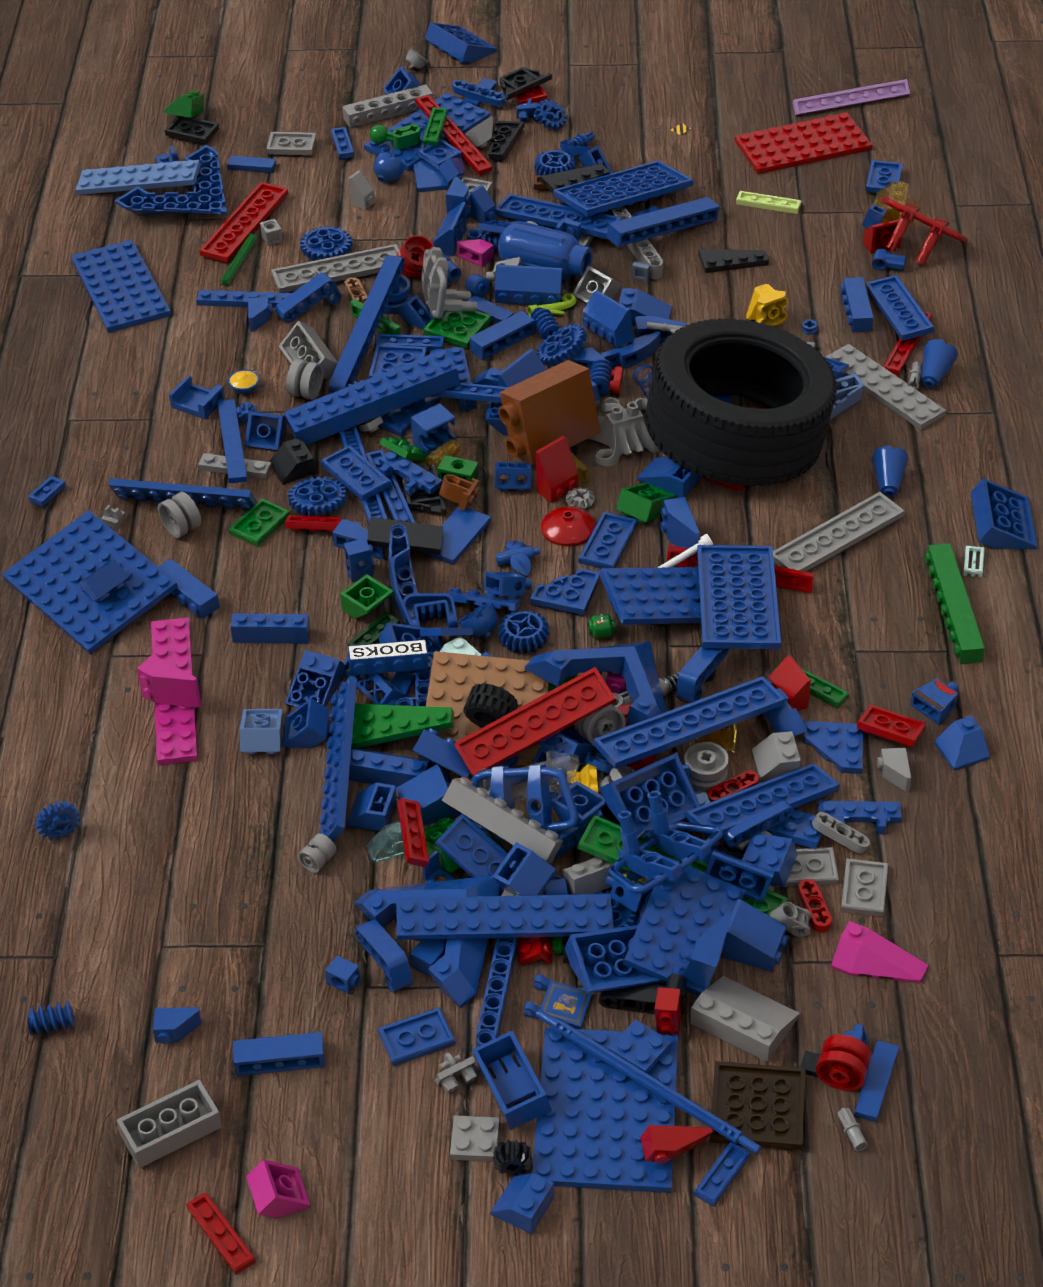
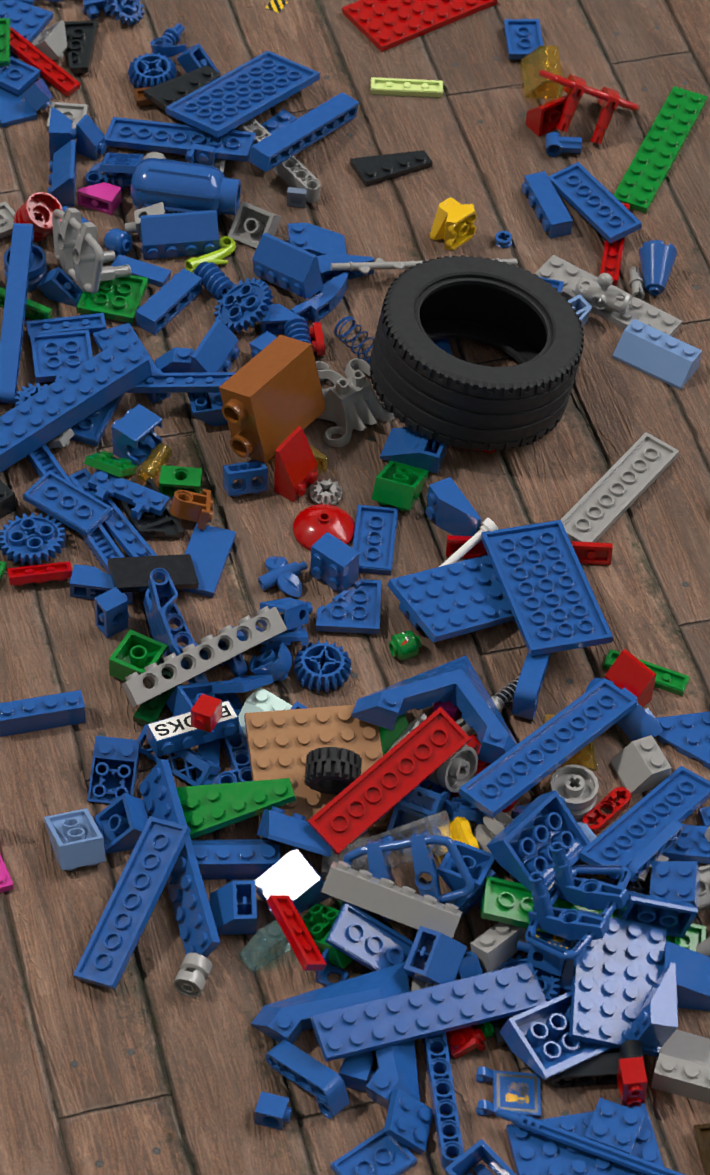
camera: 20 degrees left, 5 degrees up
(284, 784) = (132, 903): none -> blue plate
(398, 644) = (206, 713): none -> red brick
(412, 611) = (272, 626): none -> light grey brick
(457, 1005) = (408, 1121): none -> blue plate
(562, 550) = (334, 563): none -> blue brick
(874, 216) = (532, 93): blue brick -> none
(877, 378) = (602, 295): none -> light grey piece
(889, 468) = (649, 404): blue cone -> none
(913, 432) = (657, 354): none -> medium blue slope
(976, 275) = (660, 149): none -> green plate

